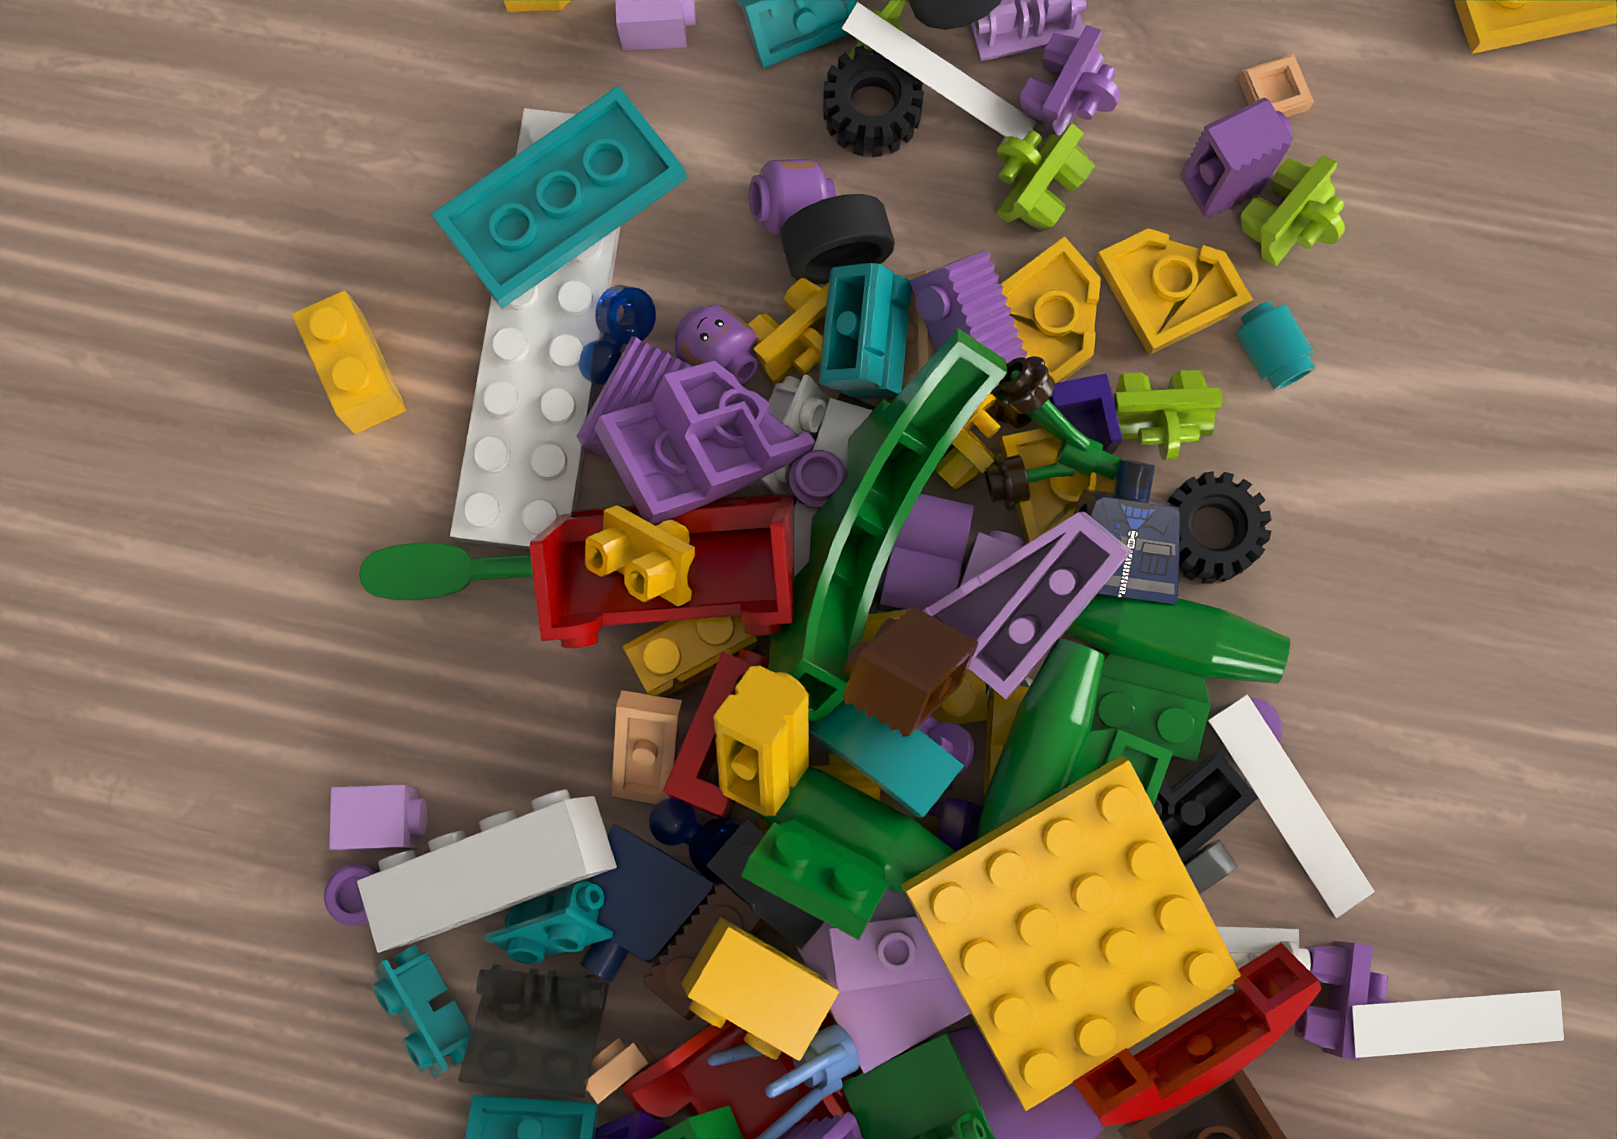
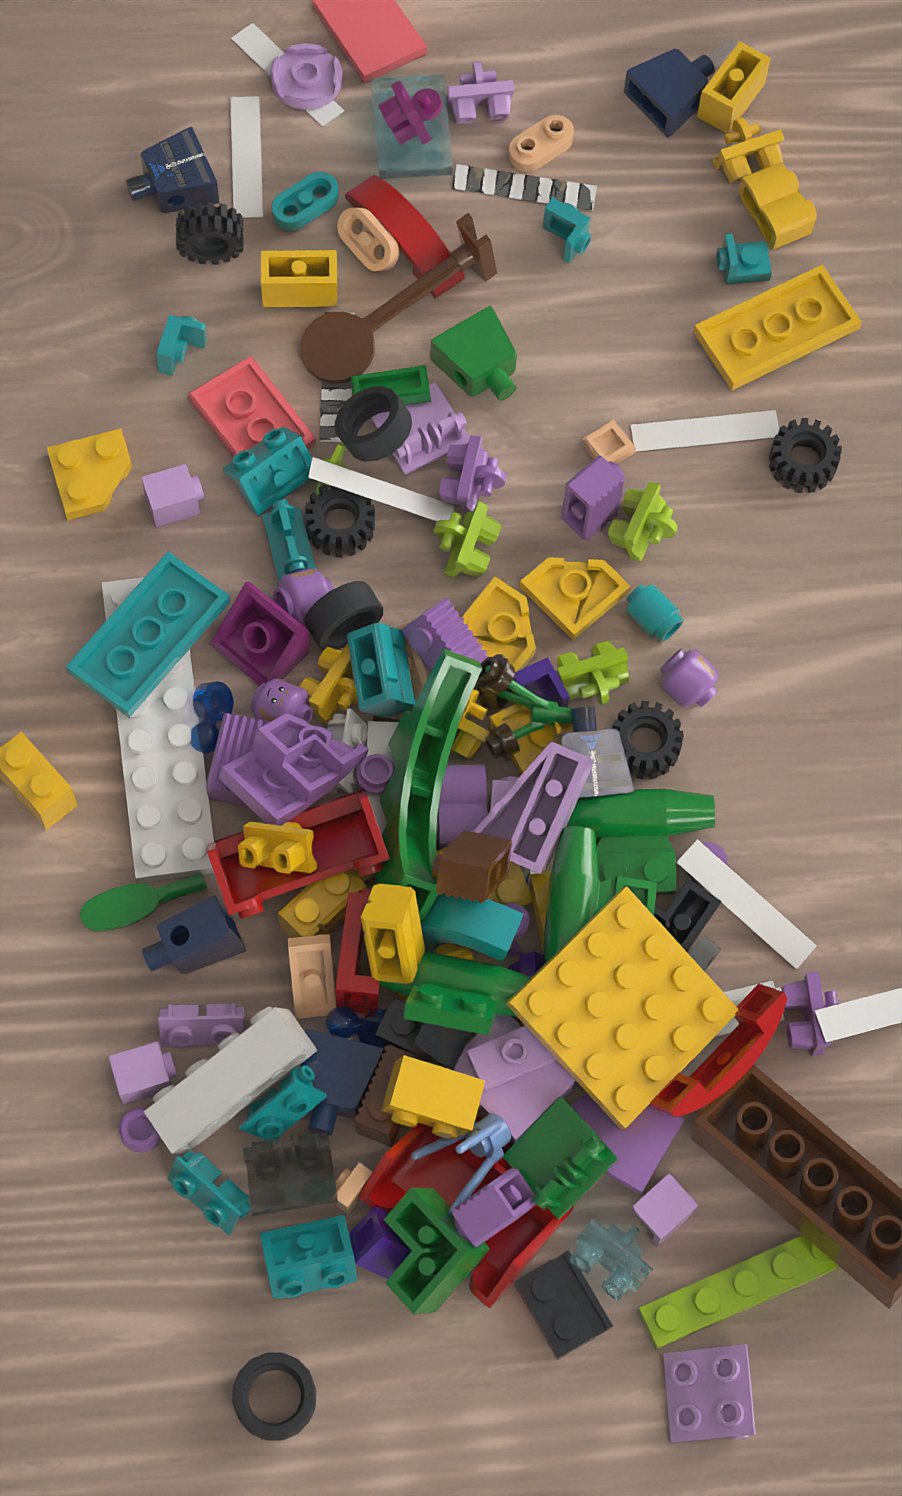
camera: 20 degrees left, 10 degrees down
(454, 765) = (183, 1026): none -> lavender hinge
(497, 650) = (195, 938): none -> dark blue torso
(716, 240) = (261, 637): none -> magenta slope
(794, 110) = (288, 539): none -> teal hinge
(1300, 454) = (689, 678): none -> medium lavender head
(1418, 102) = (705, 430): none -> white sticker
(1570, 148) = (808, 436): none -> black tyre

